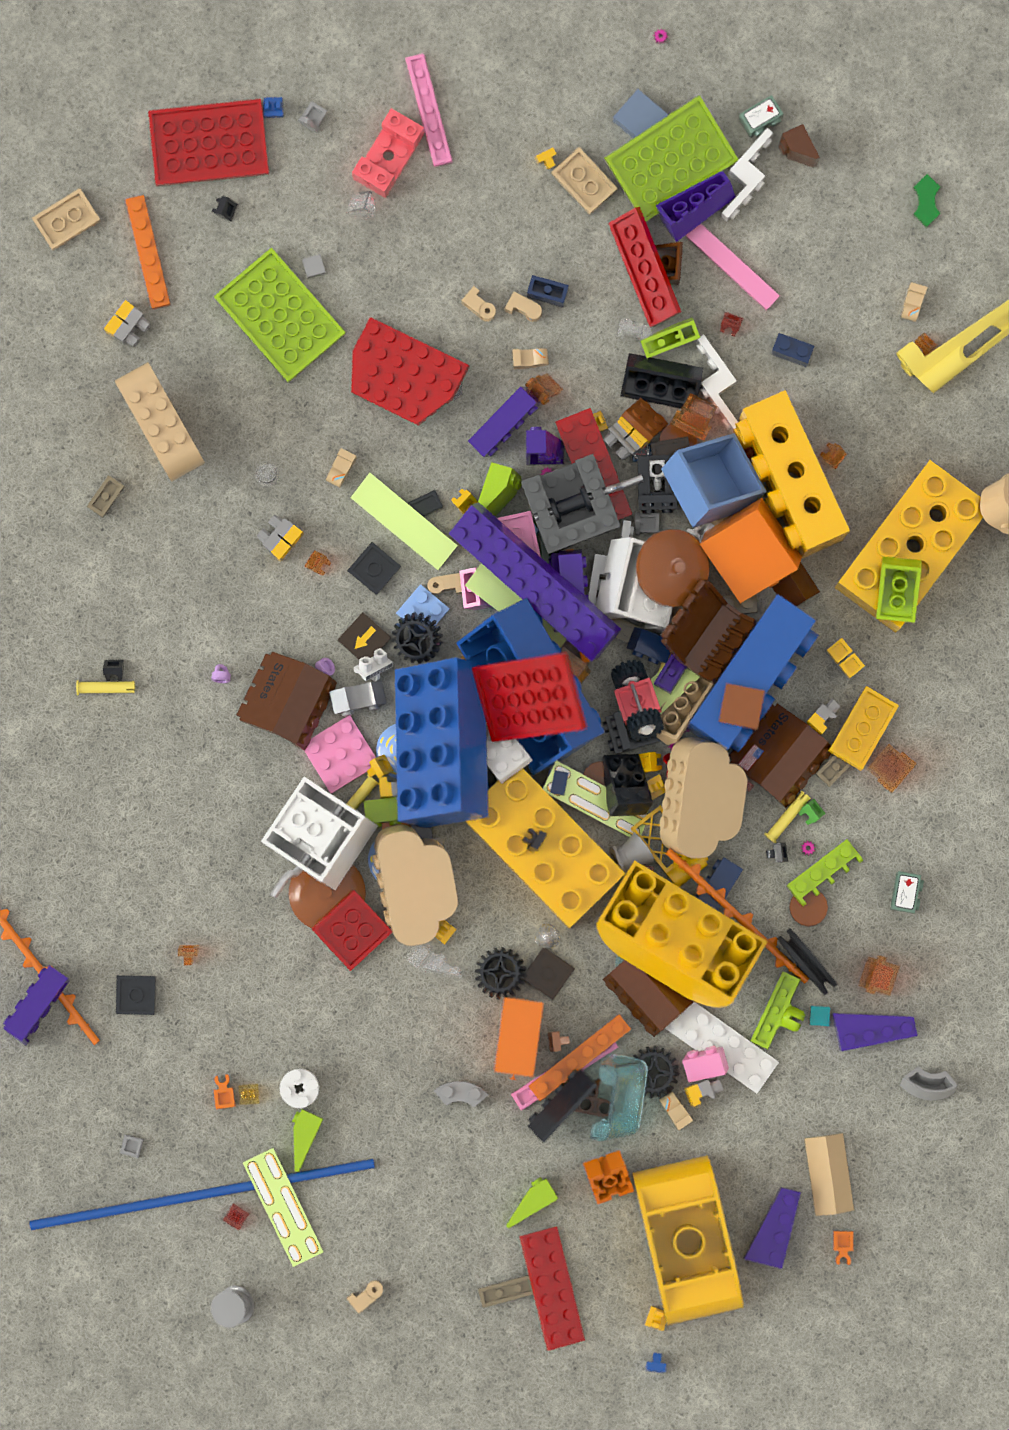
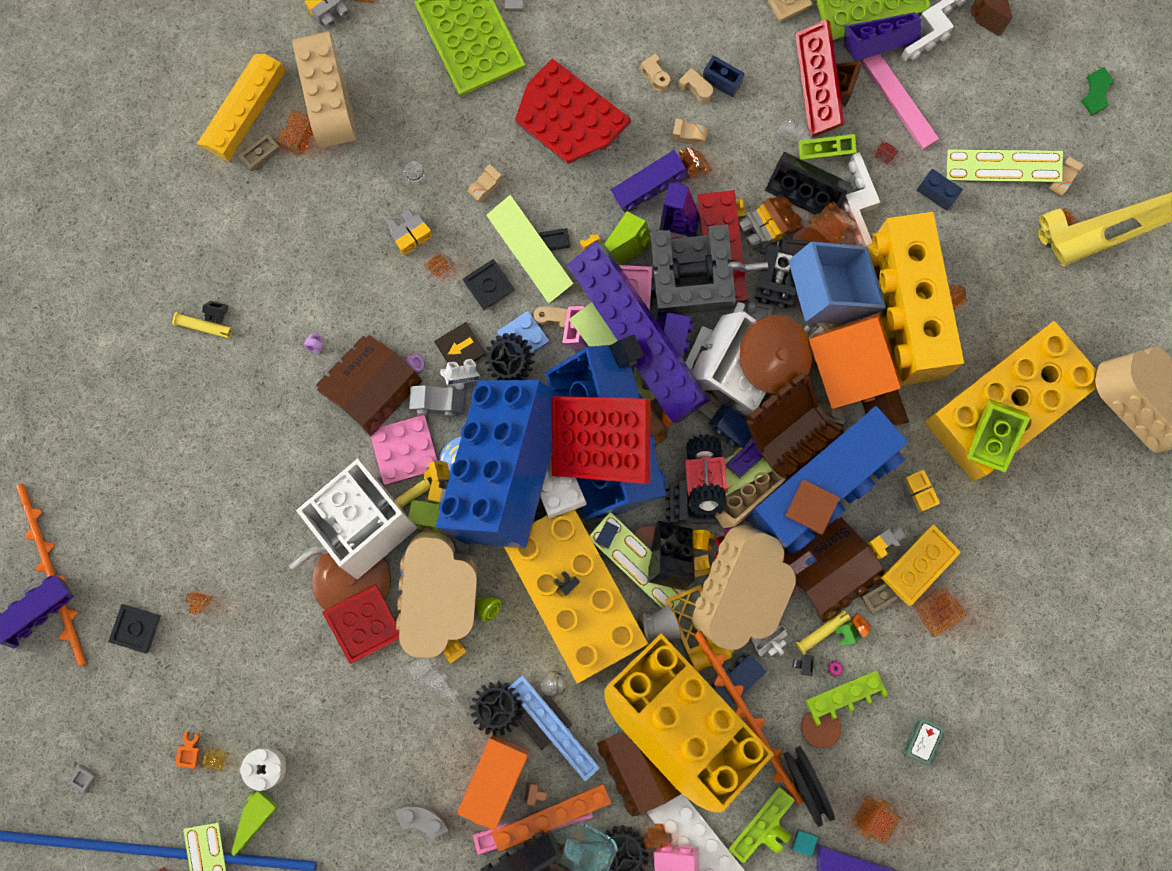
camera: 15 degrees right, 5 degrees down
(72, 453) = (242, 106): none -> yellow slope
(138, 466) = (296, 134): none -> clear orange brick
(465, 882) = (488, 607): none -> lime brick
(531, 607) = (626, 351): none -> black brick
(559, 976) = (554, 729): none -> light blue tile
(682, 1047) = (657, 837): none -> clear orange tile
(742, 840) = (764, 645): none -> white hips
(822, 800) = (861, 624): none -> orange tile
(851, 306) = (1005, 165): none -> sticker

